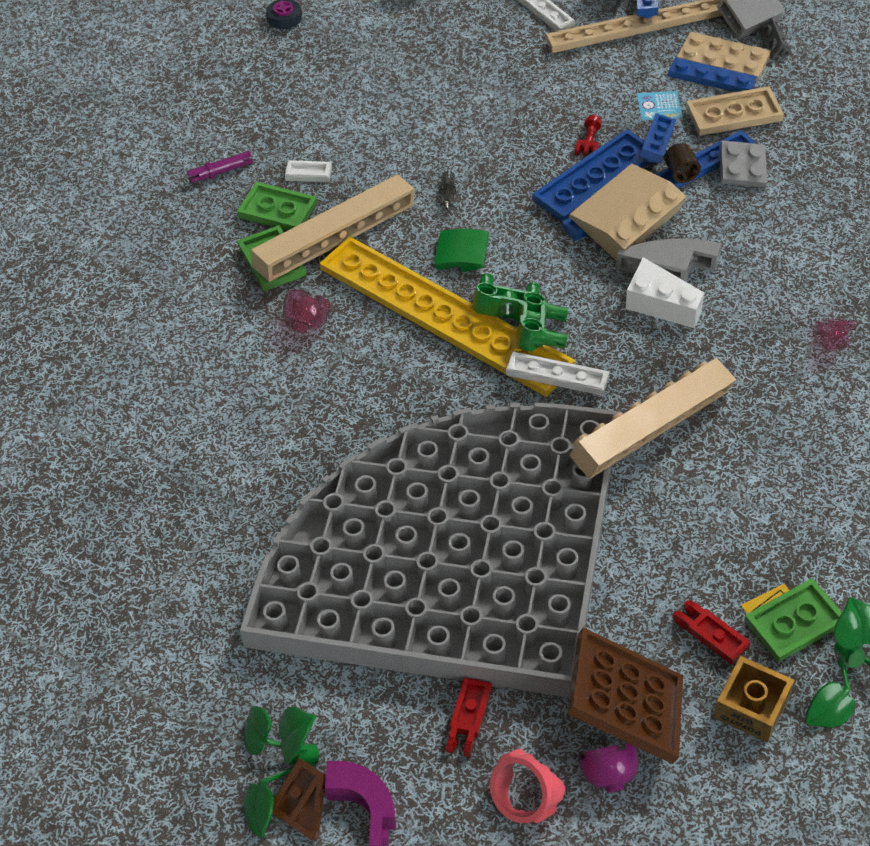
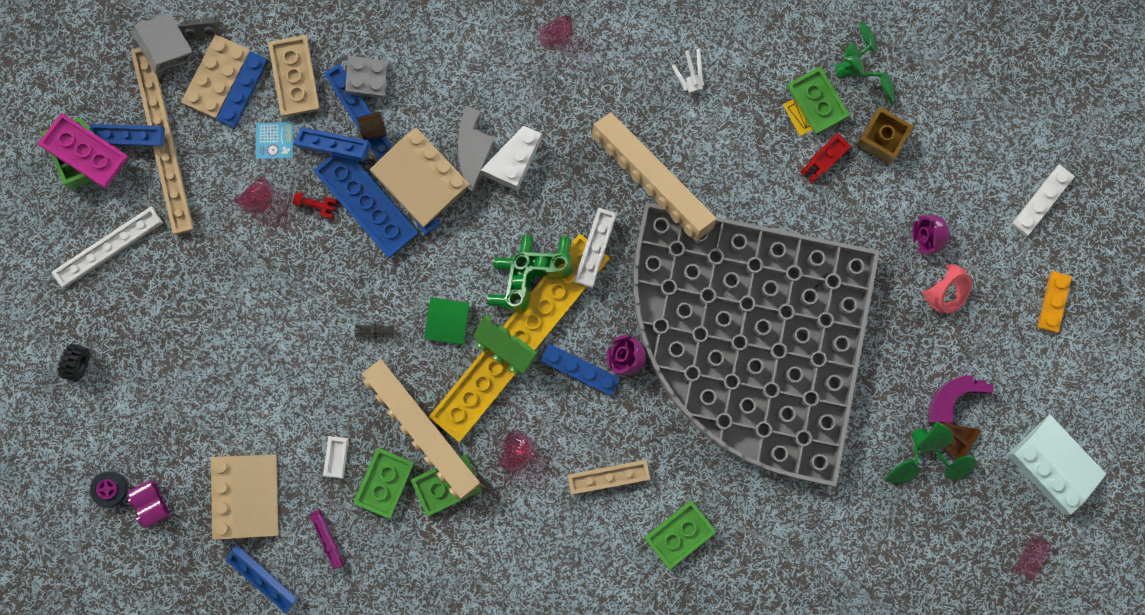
camera: 95 degrees left, 30 degrees up
(177, 126) = (261, 579): none -> blue plate
(195, 476) = (680, 534): none -> bright green plate
(267, 39) = (149, 504): none -> magenta brick
(269, 101) = (244, 496): none -> tan slope
(271, 403) = (608, 477): none -> tan plate
(404, 374) = (580, 369): none -> blue plate
(418, 407) = (626, 355): none -> magenta cylinder
(431, 281) = (504, 347): none -> bright green wedge
(469, 713) = (889, 326): red hinge -> none
(592, 86) = (256, 196): none -> clear pink cylinder
(626, 695) = (892, 217): reddish brown plate -> none
(794, 473) = (694, 83): none -> white plant

